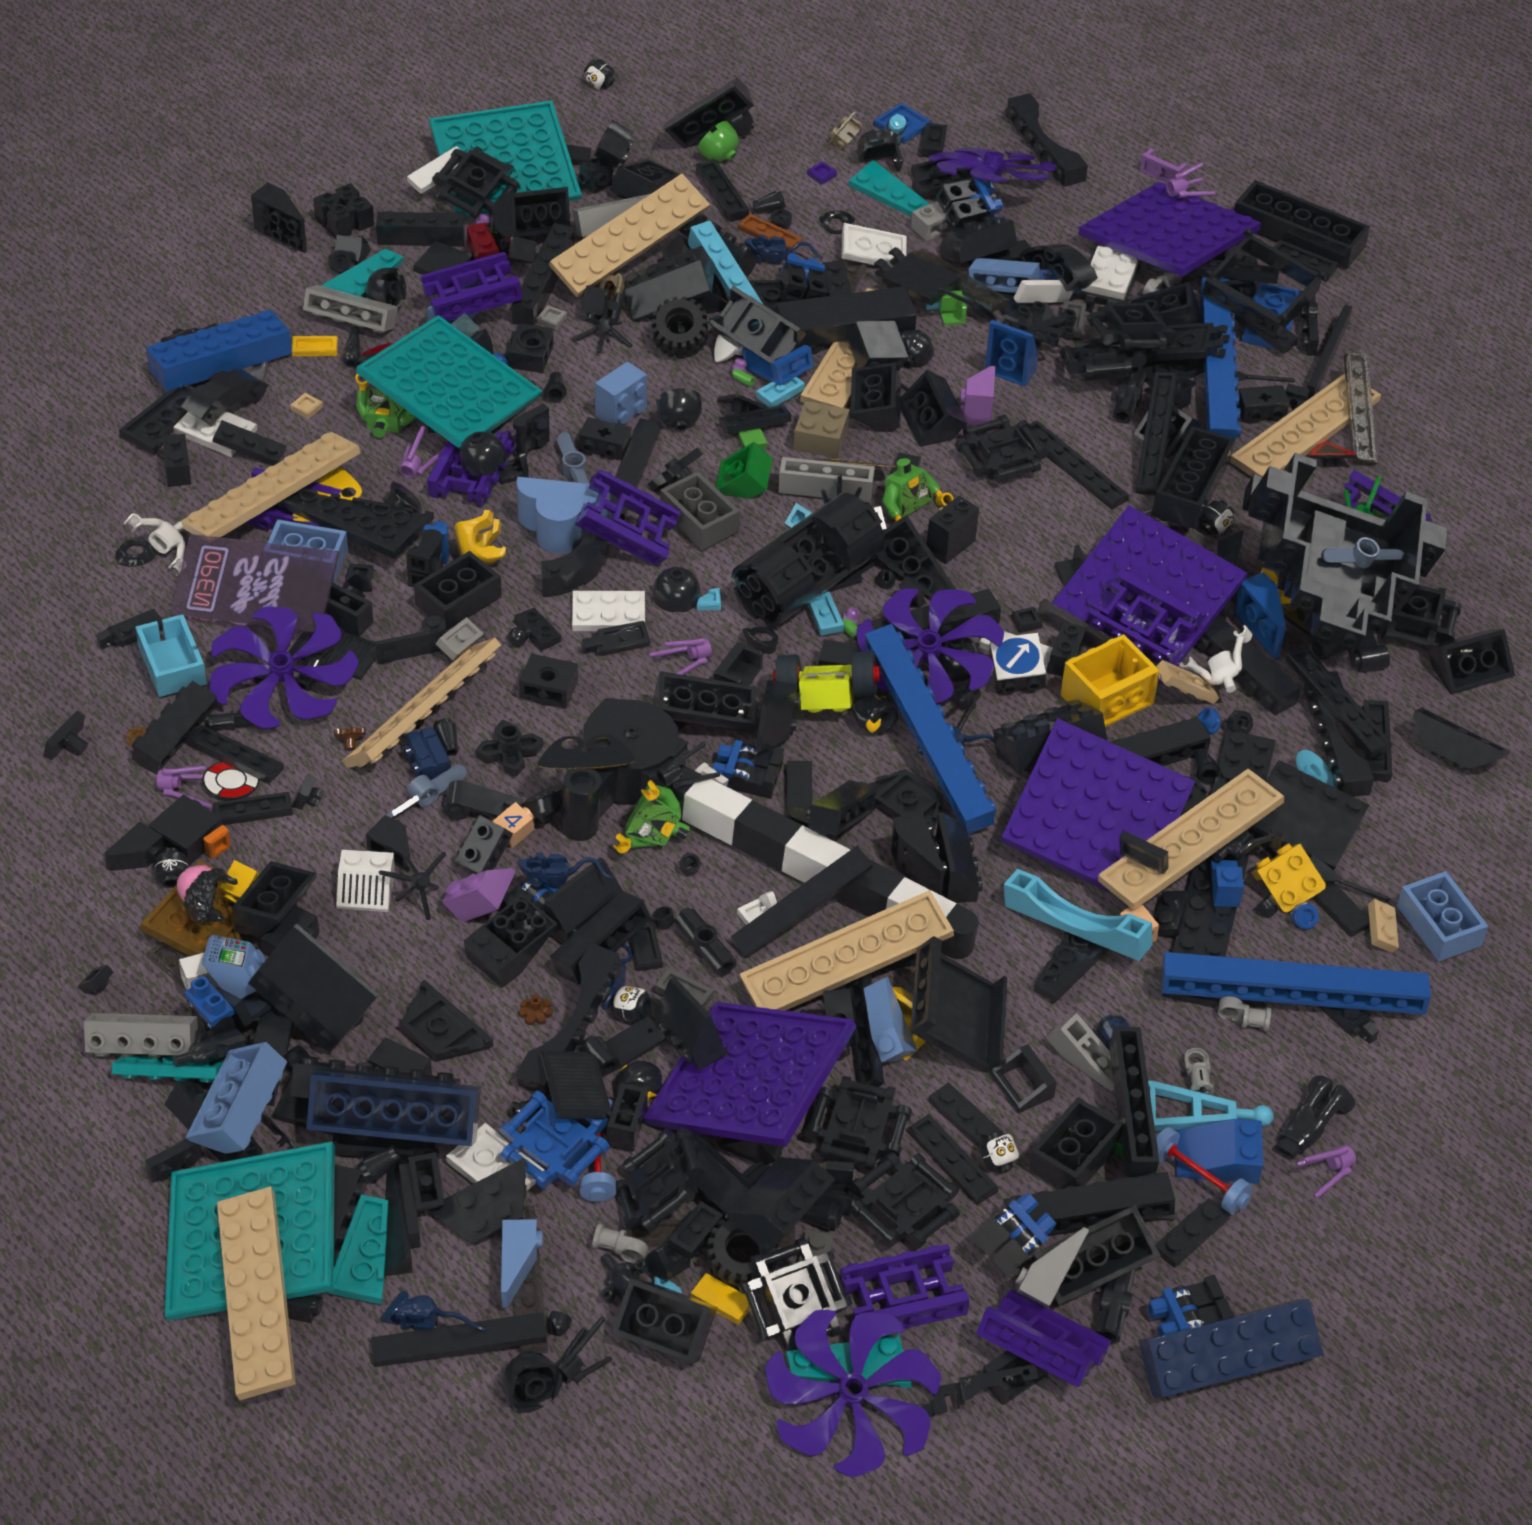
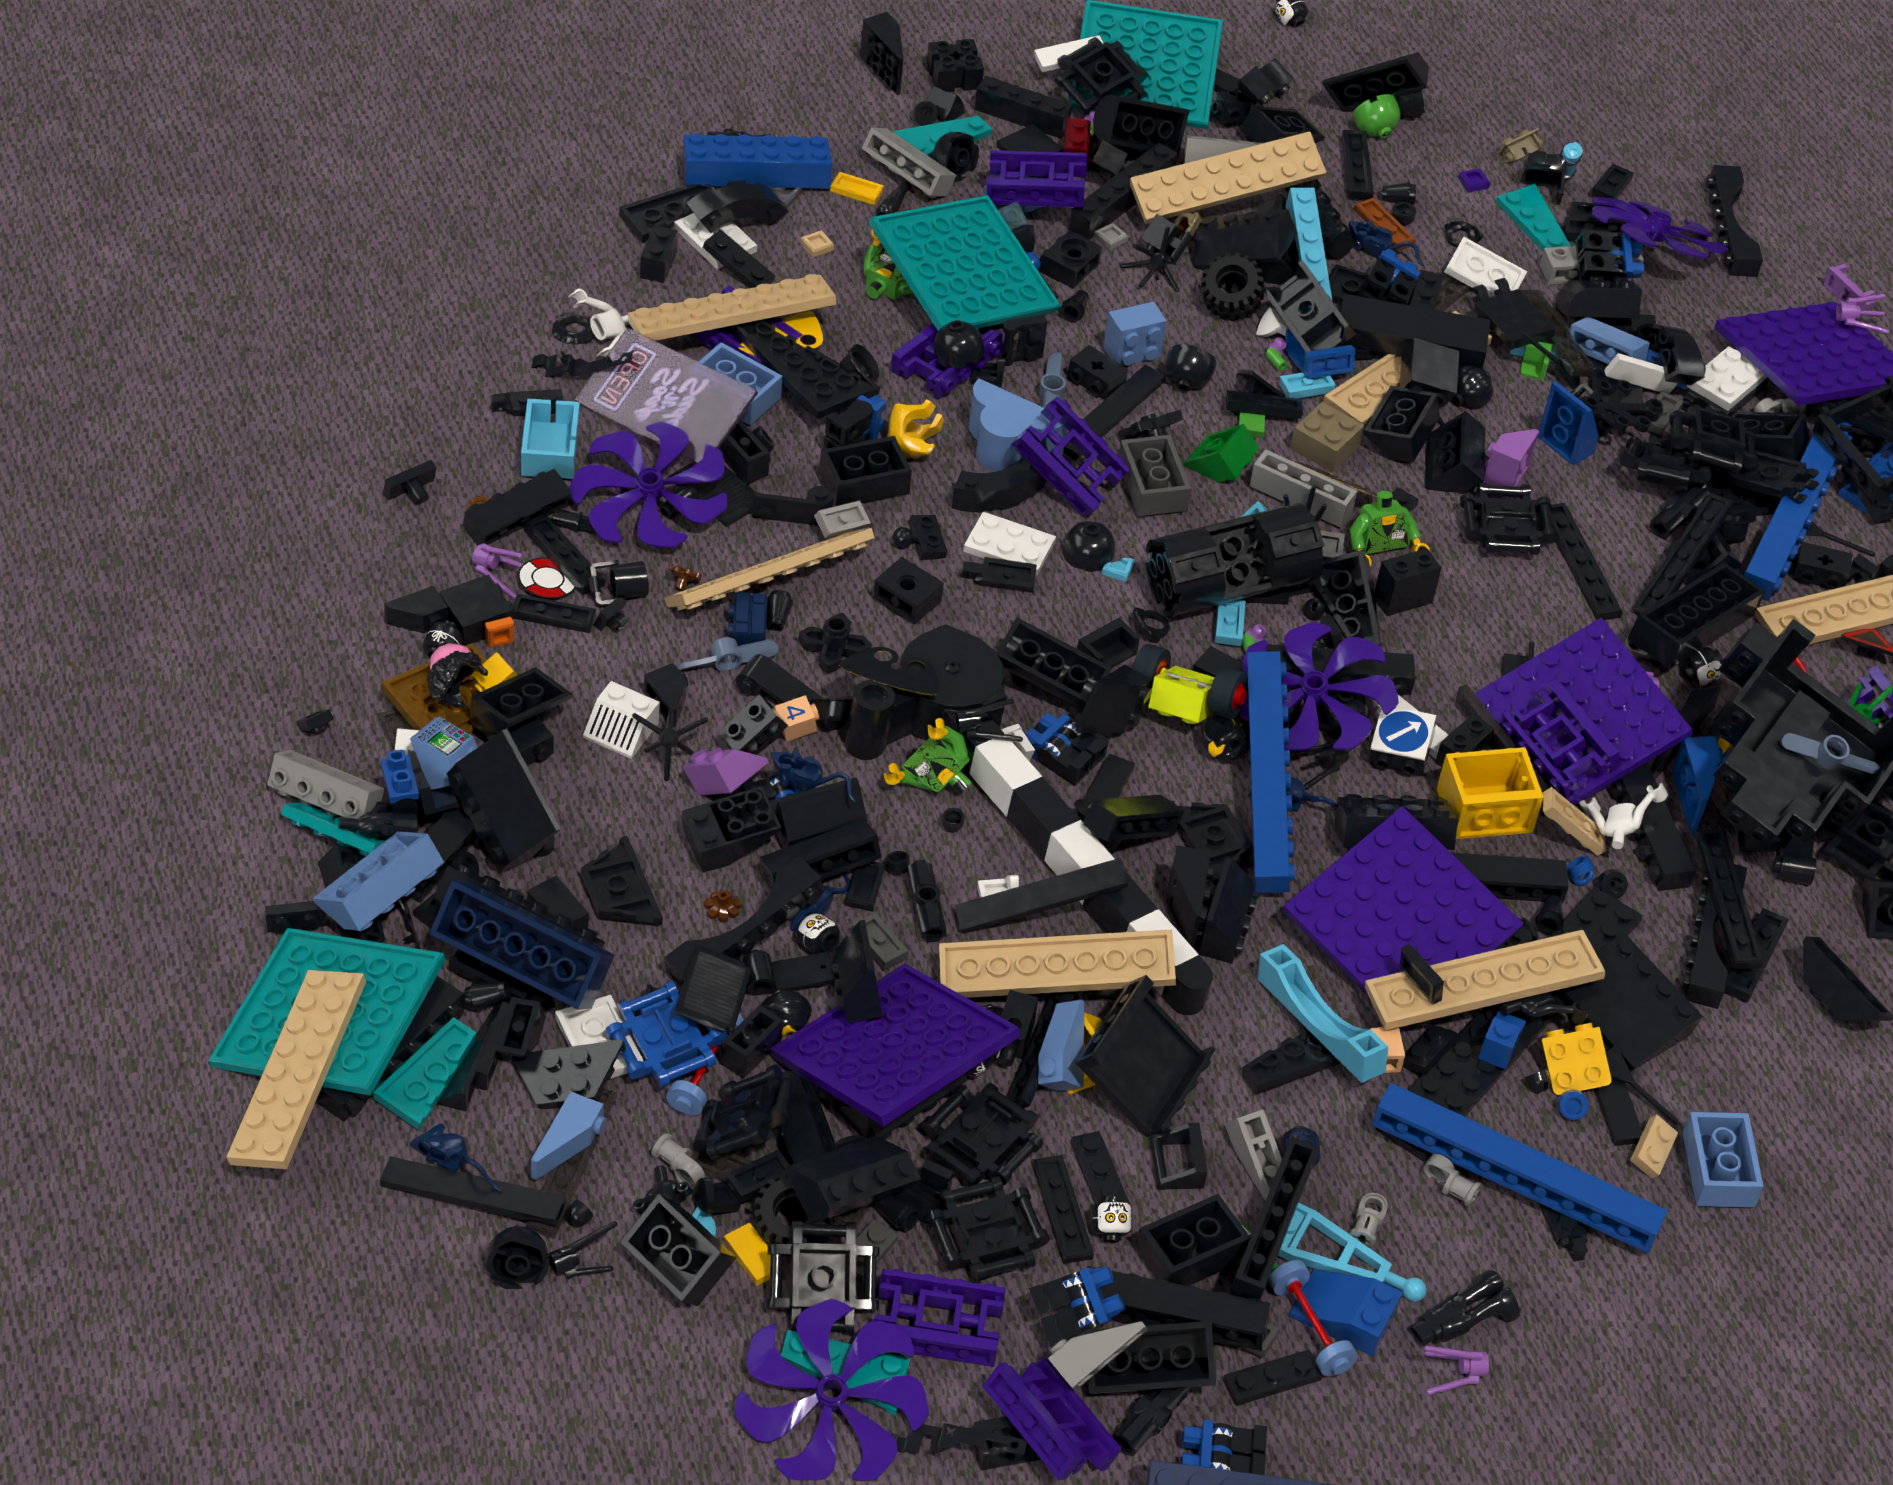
camera: 20 degrees right, 0 degrees up
(153, 583) = (571, 365): none -> black piece
(301, 757) = (626, 580): none -> black piece
(361, 576) = (779, 427): black tile -> none
(411, 463) = (889, 333): medium lavender plant -> none
(697, 649) = (1077, 611): medium lavender plant -> none
(915, 122) = (1595, 156): blue tile -> none
(1026, 619) = (1441, 701): black tile -> none
(1313, 765) = (1667, 958): medium azure dish -> none

